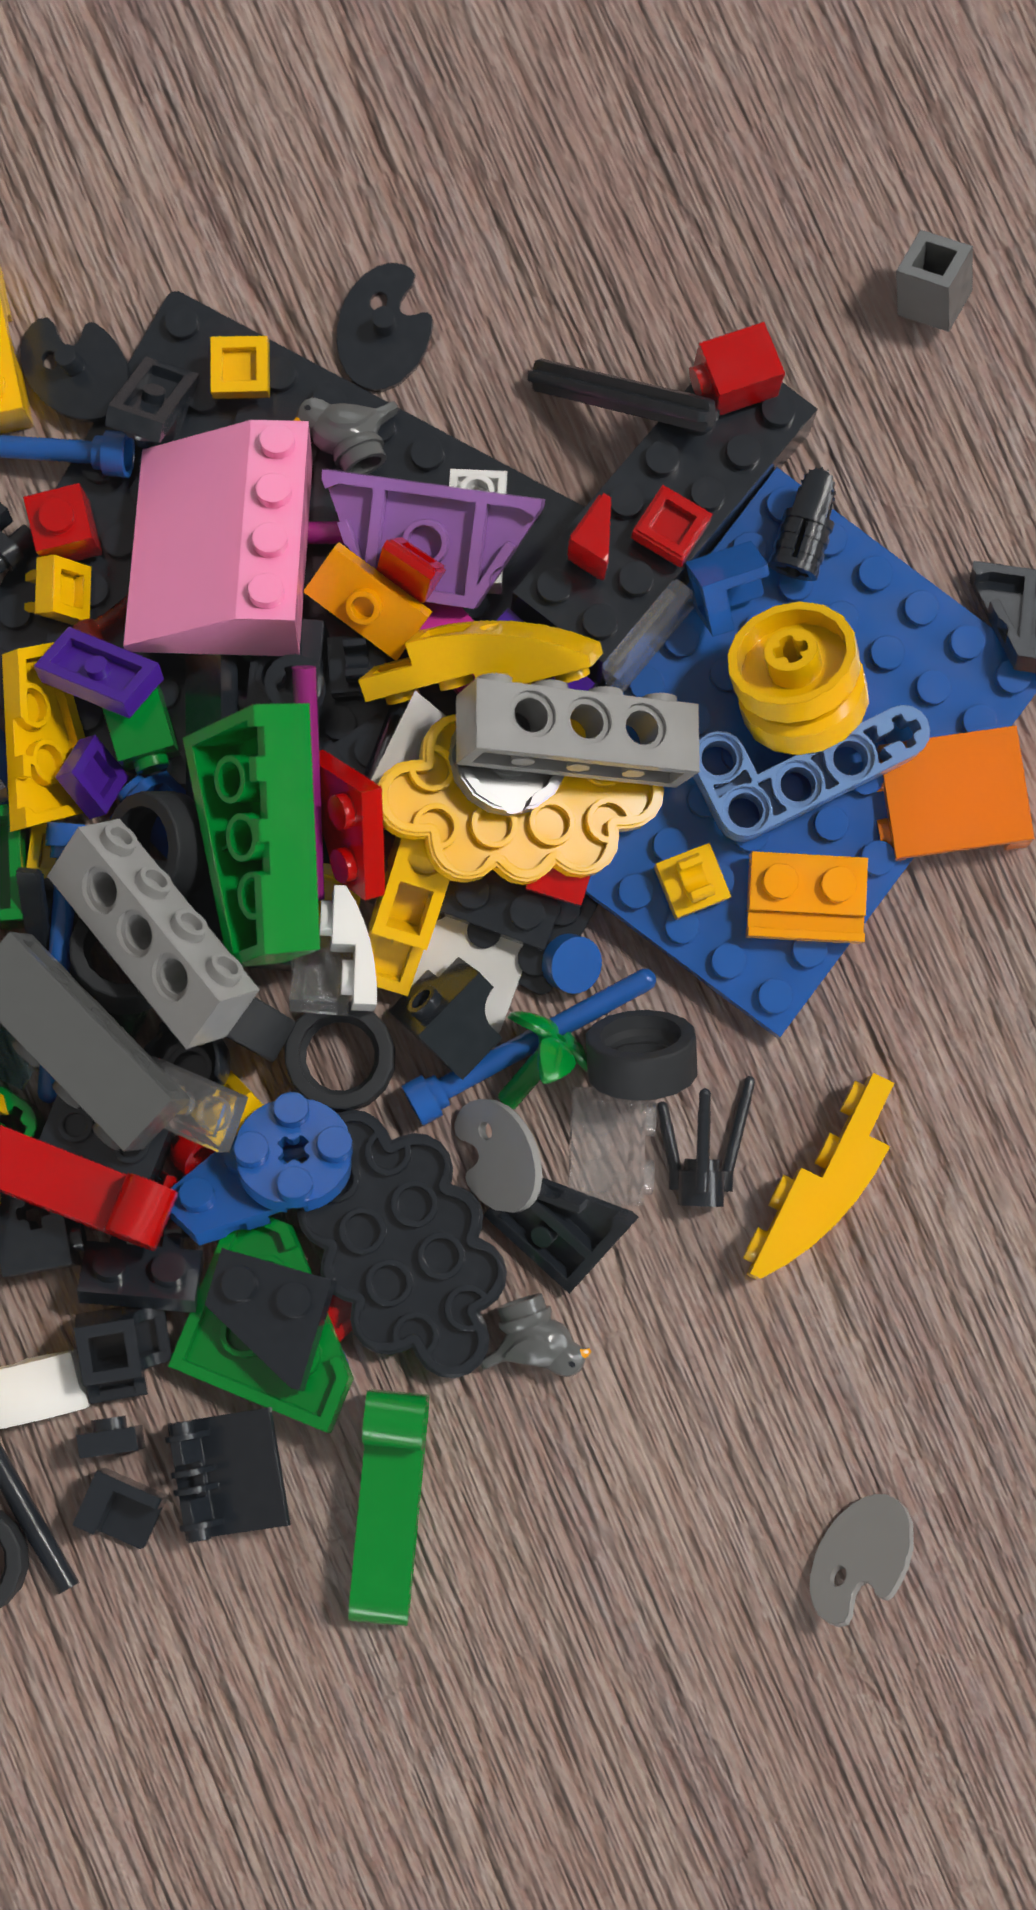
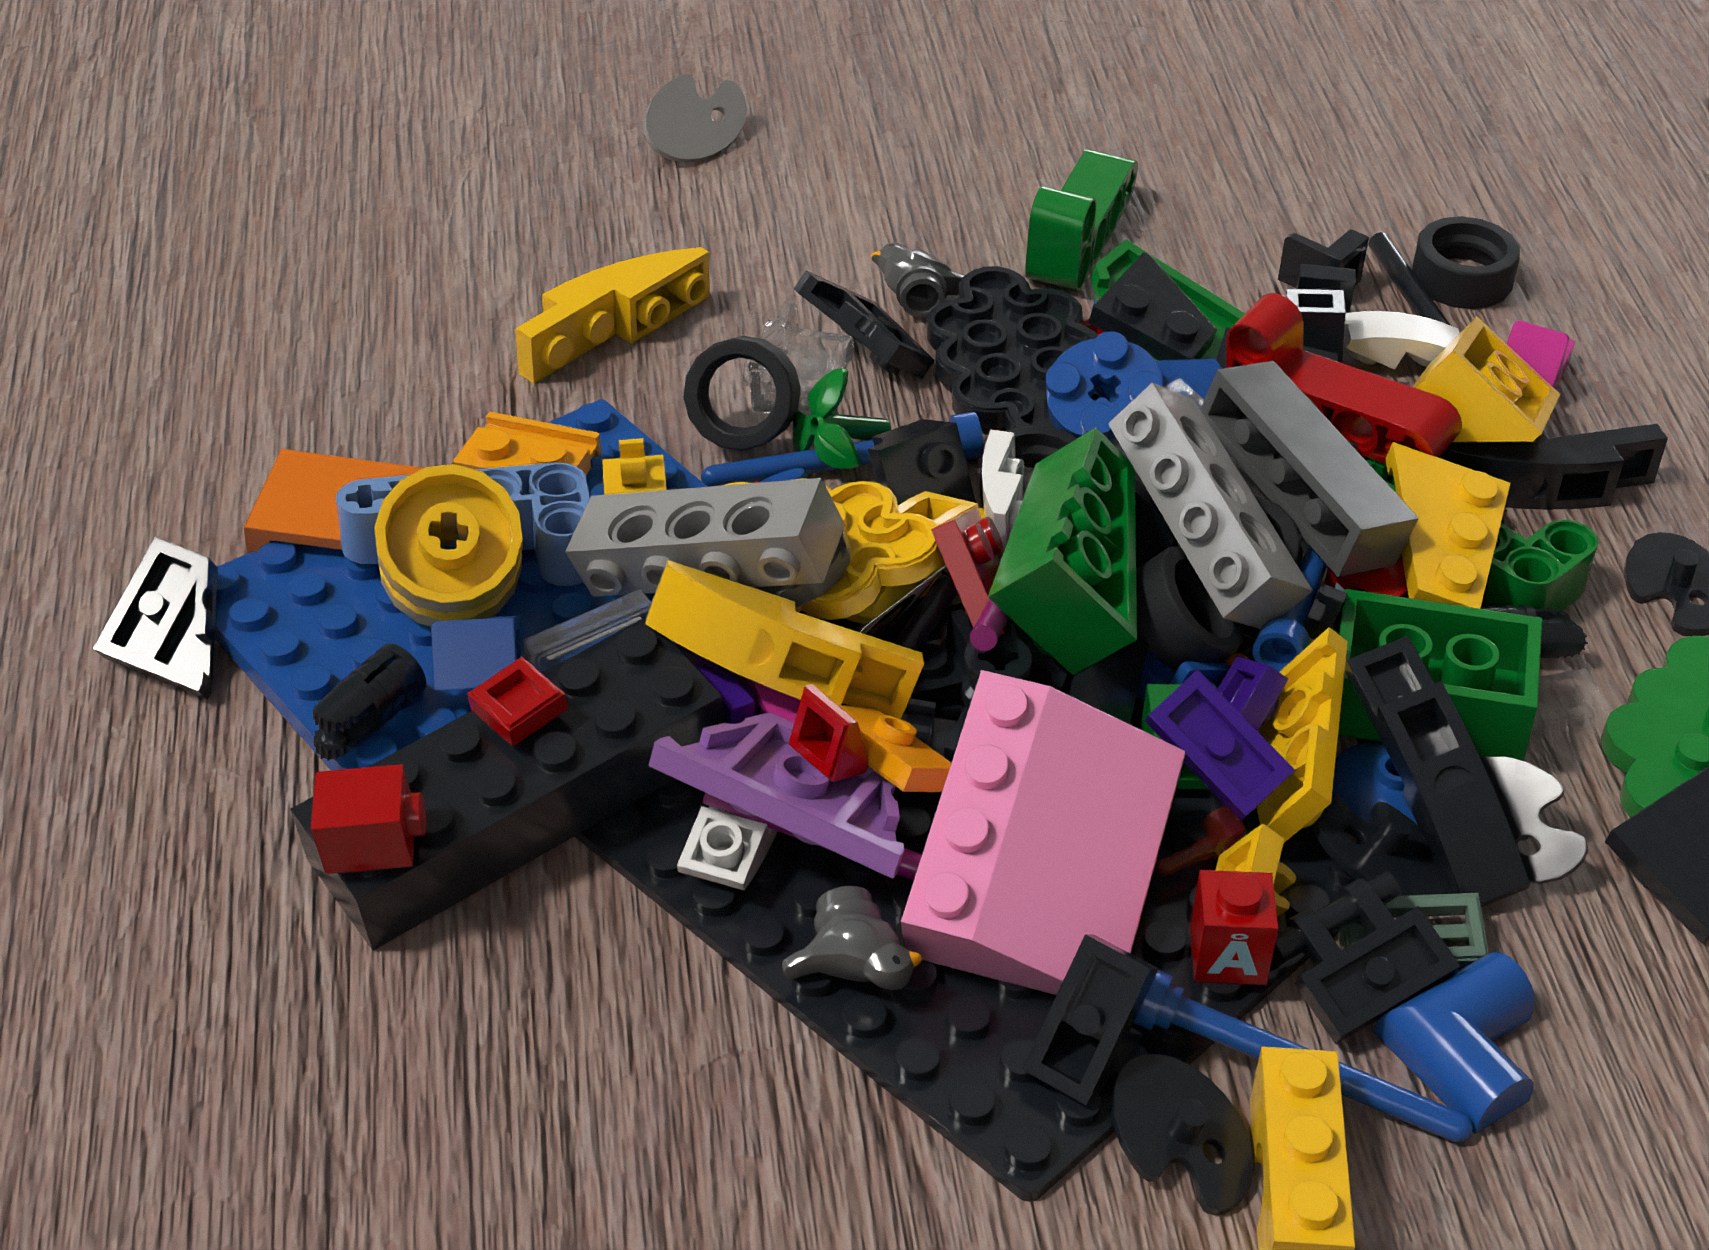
camera: 170 degrees left, 40 degrees down
(228, 1474) = (1224, 258): black hinge -> none
(240, 367) = (967, 1046): yellow plate -> none
(381, 344) = (774, 1071): black piece -> none
(508, 1162) = (904, 364): light grey piece -> none
(591, 537) = (611, 685): red slope -> none
(623, 395) = (510, 875): black axle -> none
(701, 1180) = (723, 324): black plant -> none
(934, 280) = (74, 919): dark grey brick -> none

